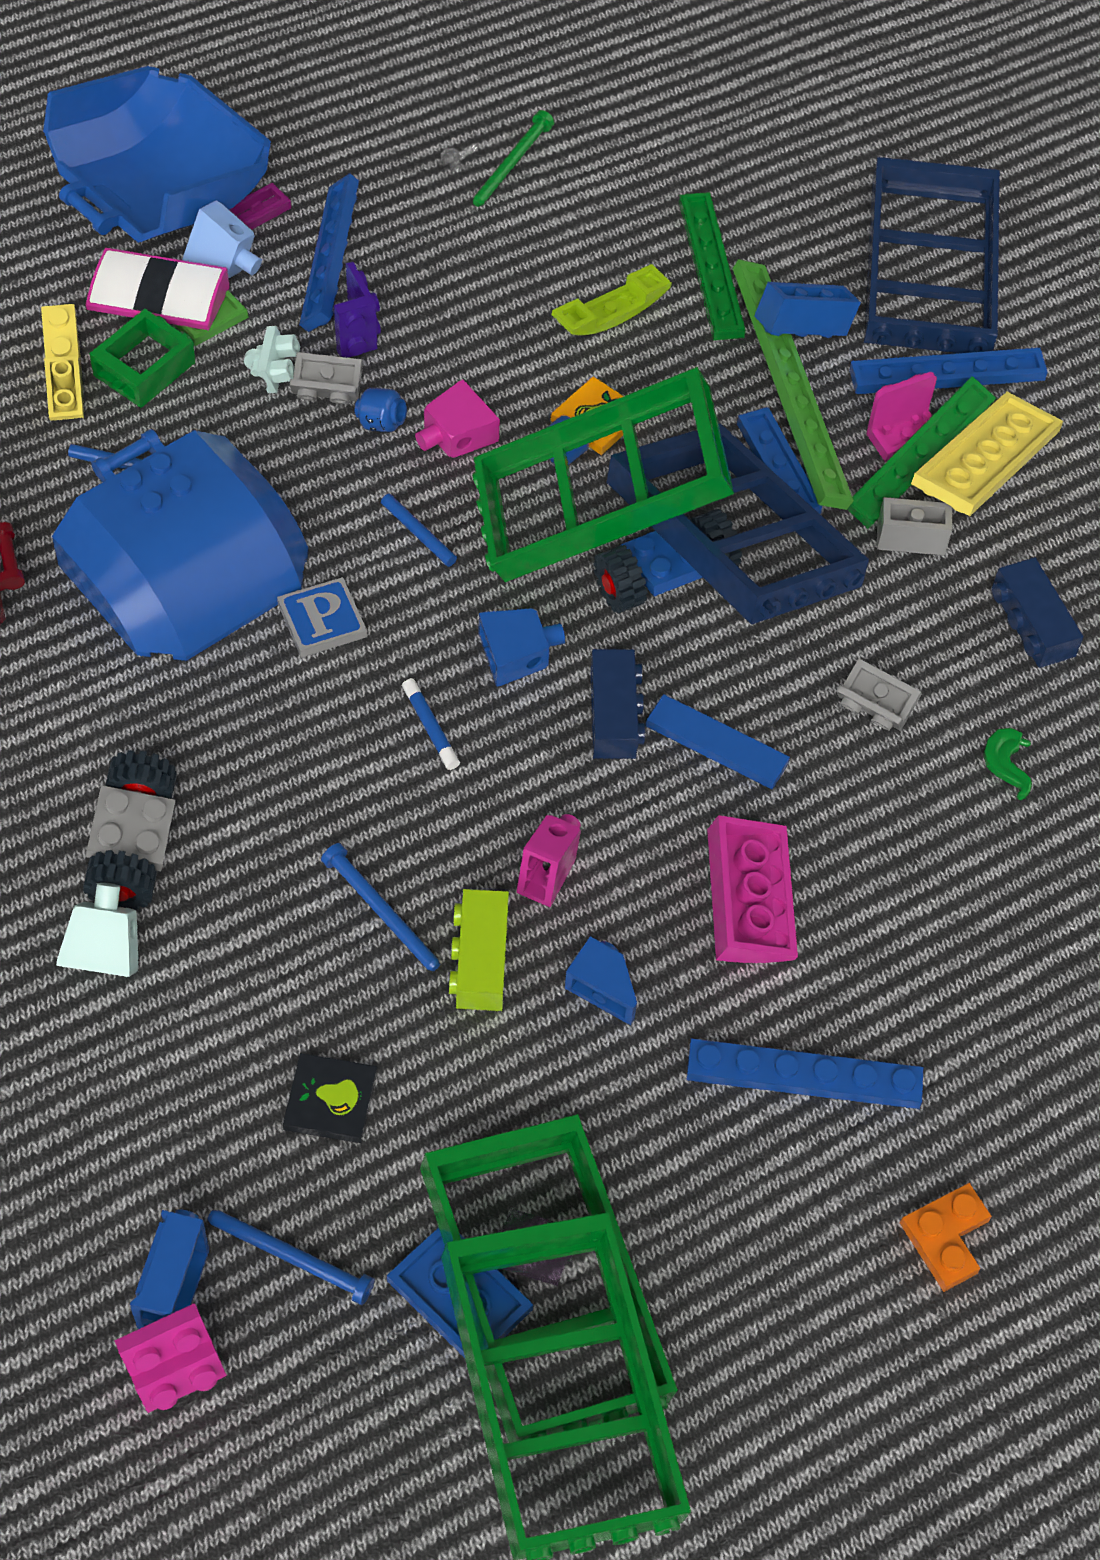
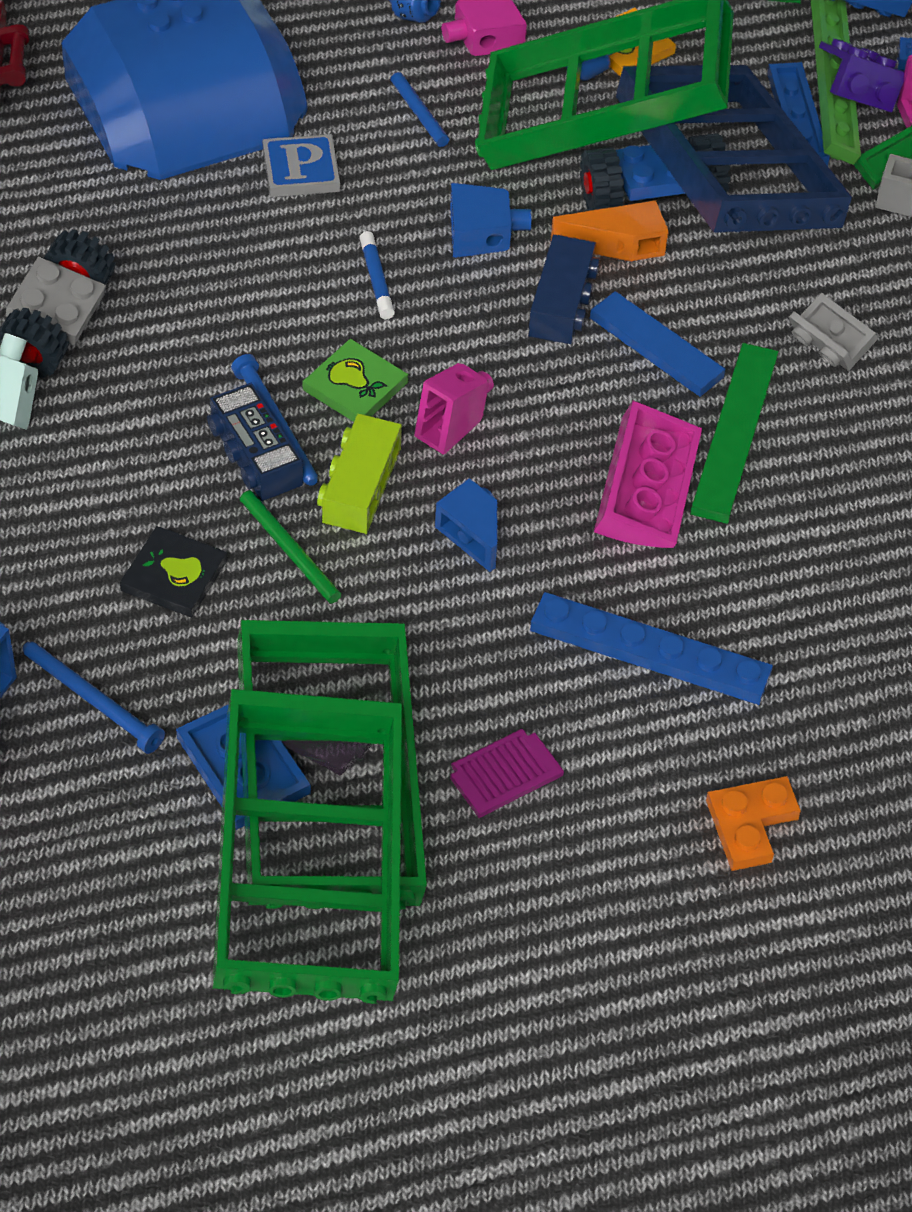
camera: 15 degrees right, 5 degrees down
(369, 938) = (255, 442): none -> brick
(434, 1044) = (290, 547): none -> green bar
(444, 847) = (355, 381): none -> bright green tile
(649, 630) = (619, 232): none -> orange slope
(706, 1239) = (504, 771): none -> magenta window
(817, 824) = (734, 433): none -> green tile
(836, 415) = (865, 75): none -> dark purple bracket

